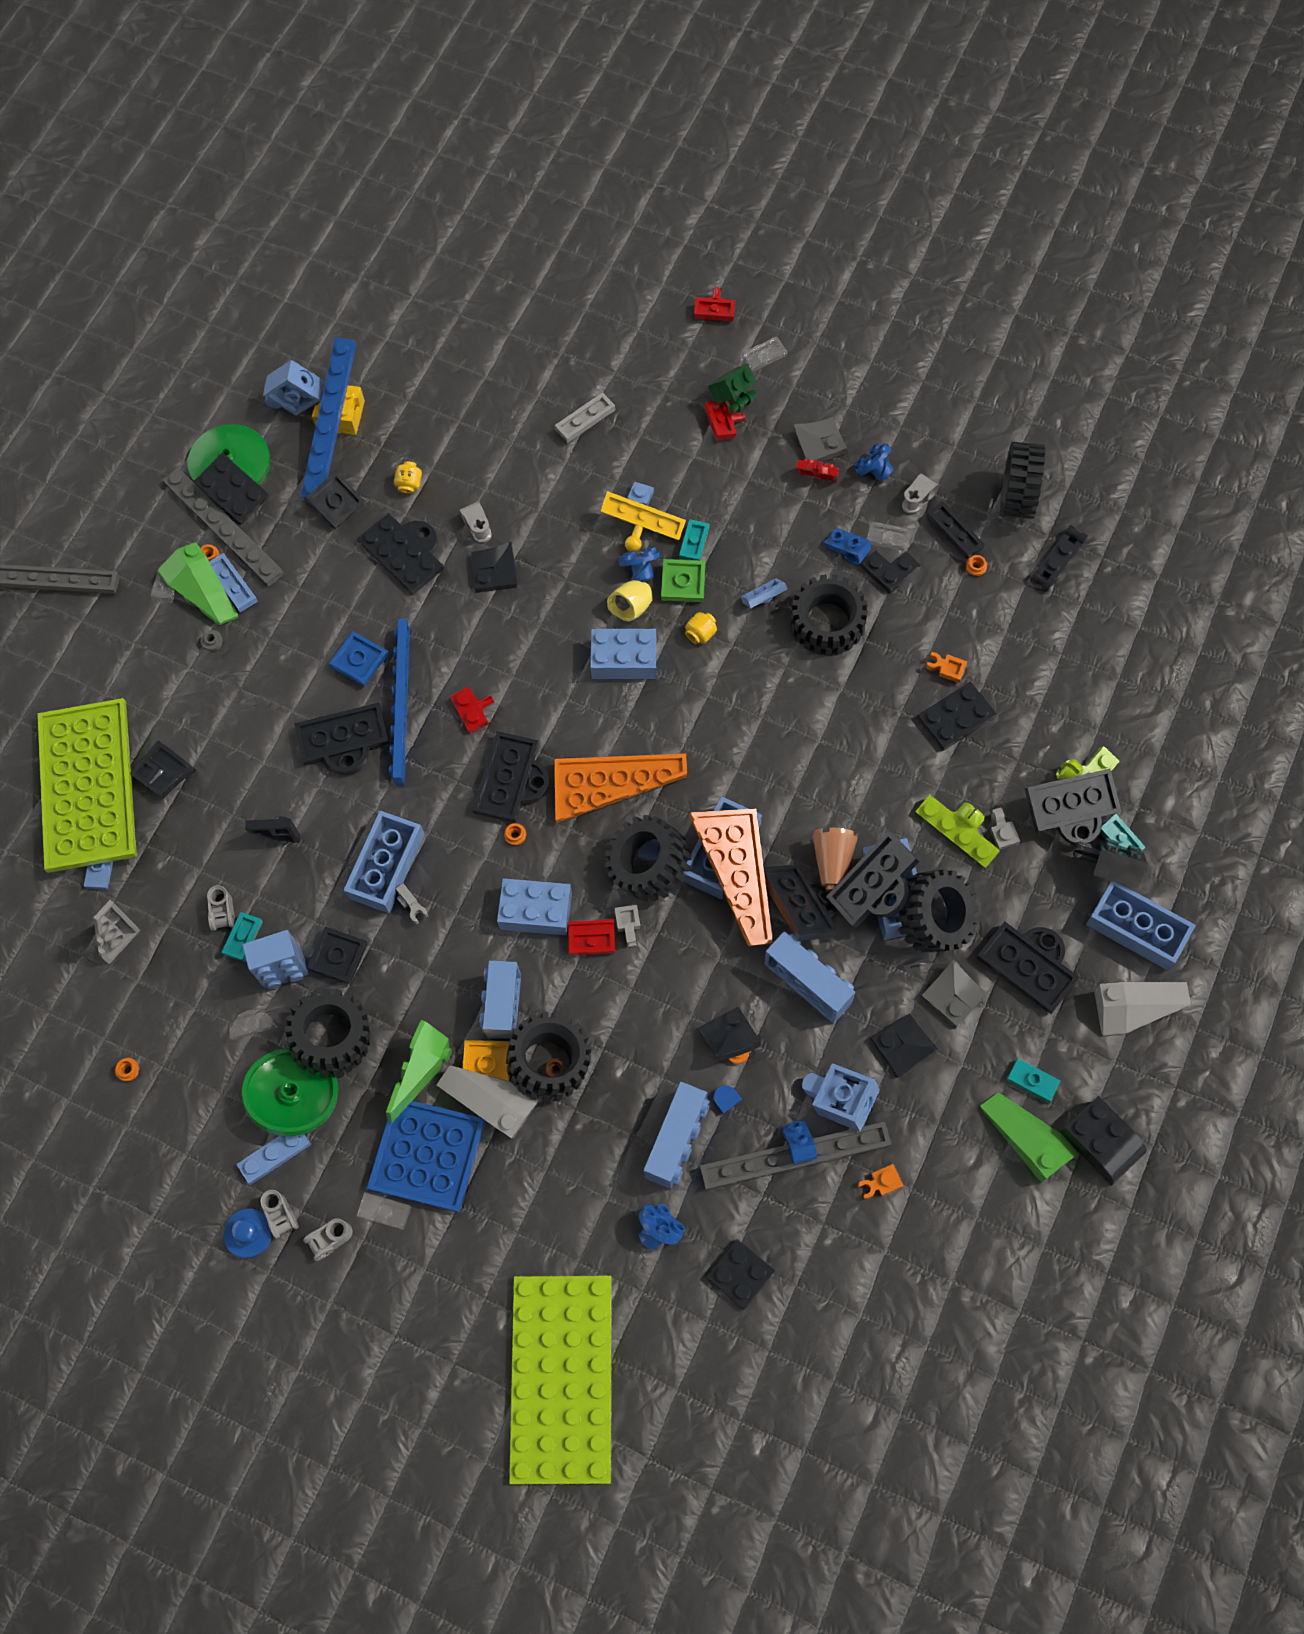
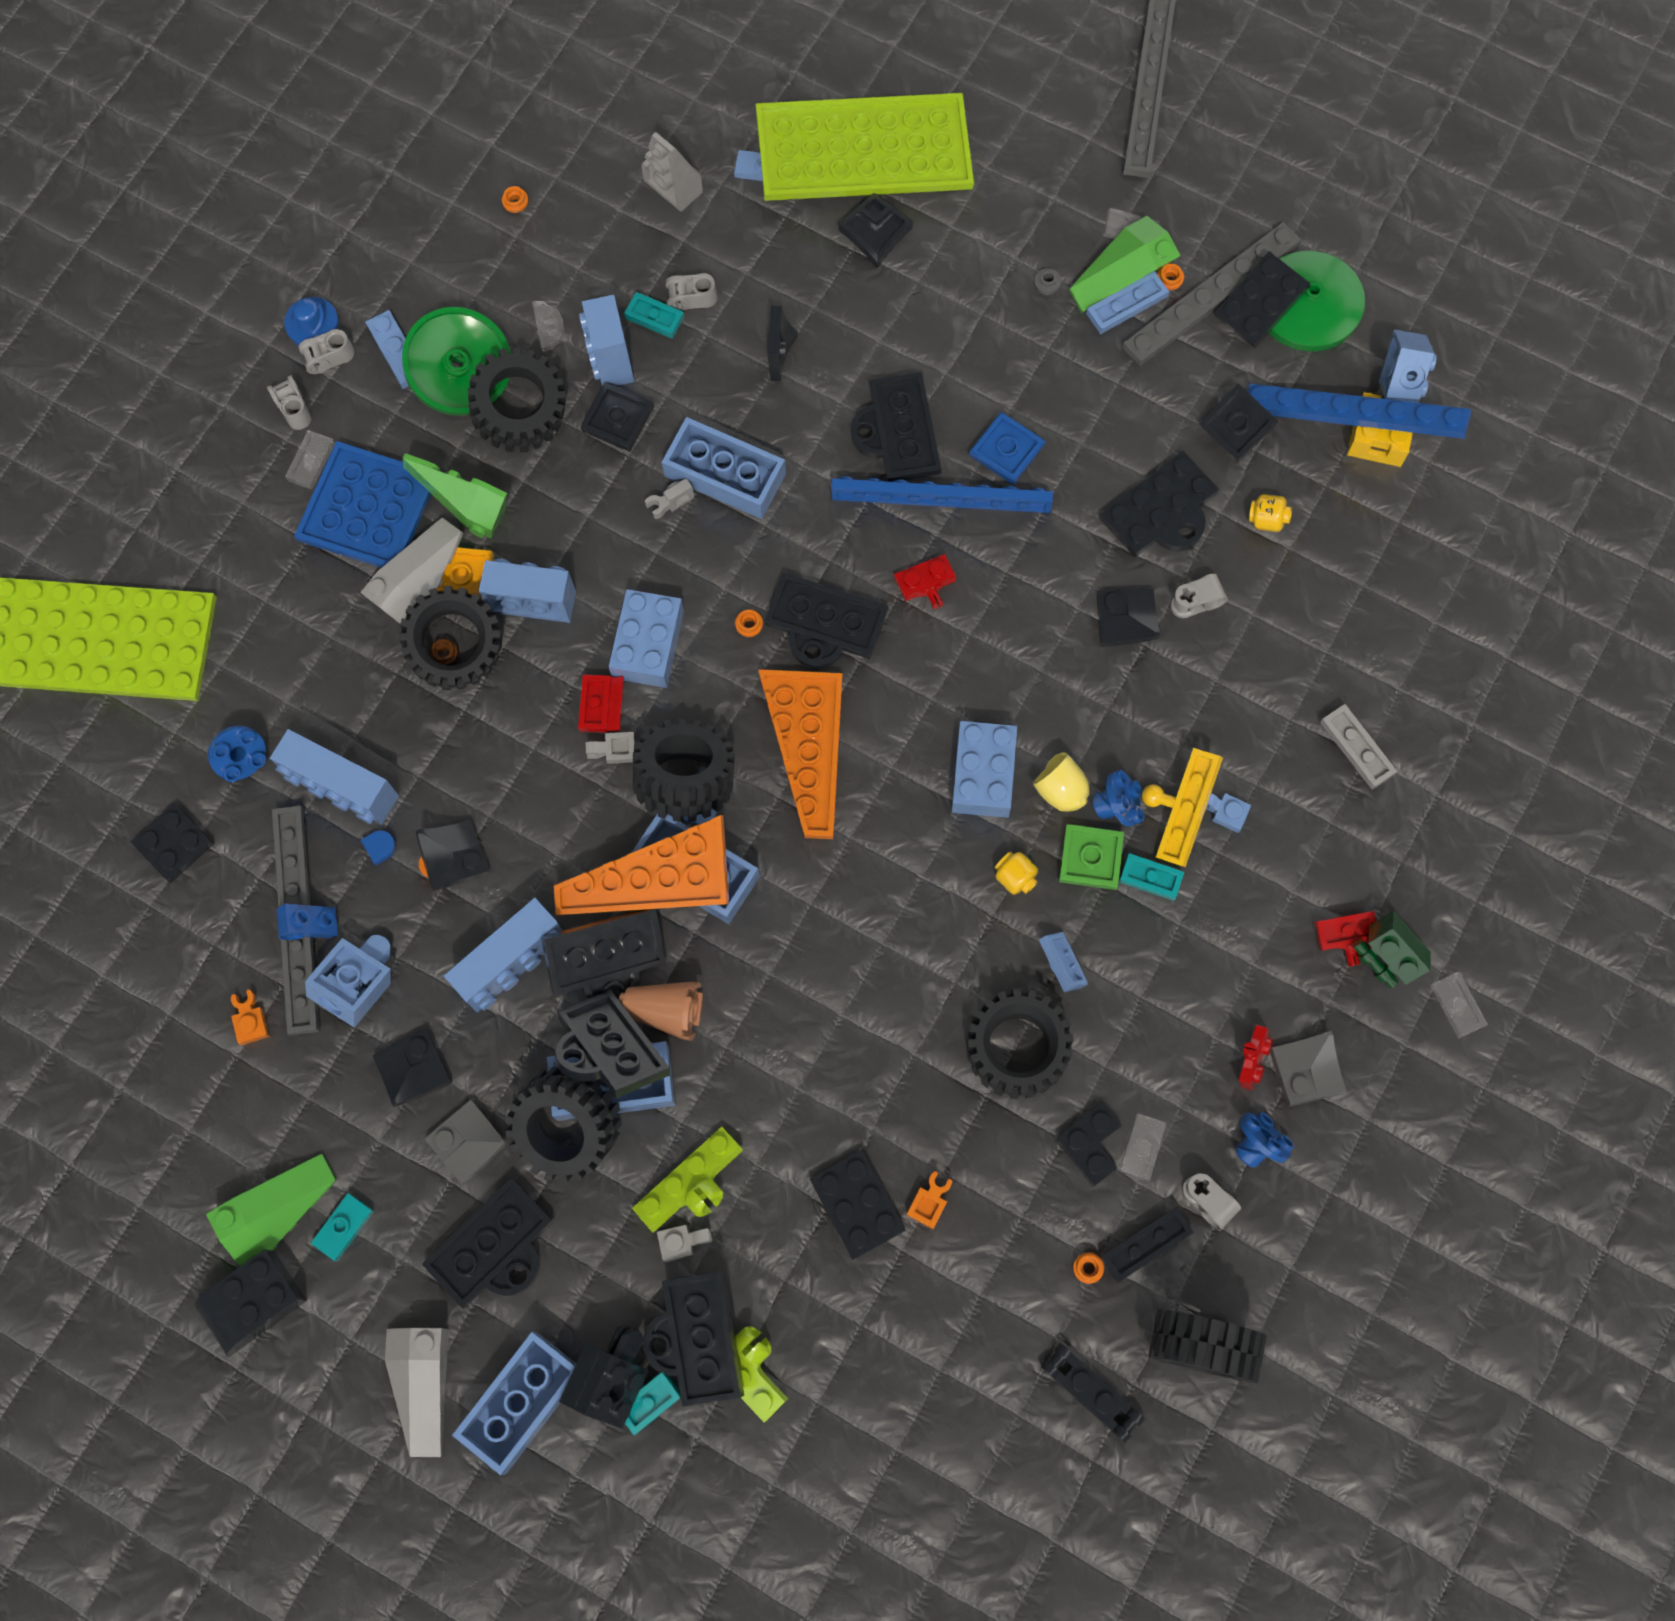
camera: 95 degrees right, 5 degrees up
(714, 307) = (1543, 941): red plate -> none
(850, 545) = (1131, 1086): blue plate -> none

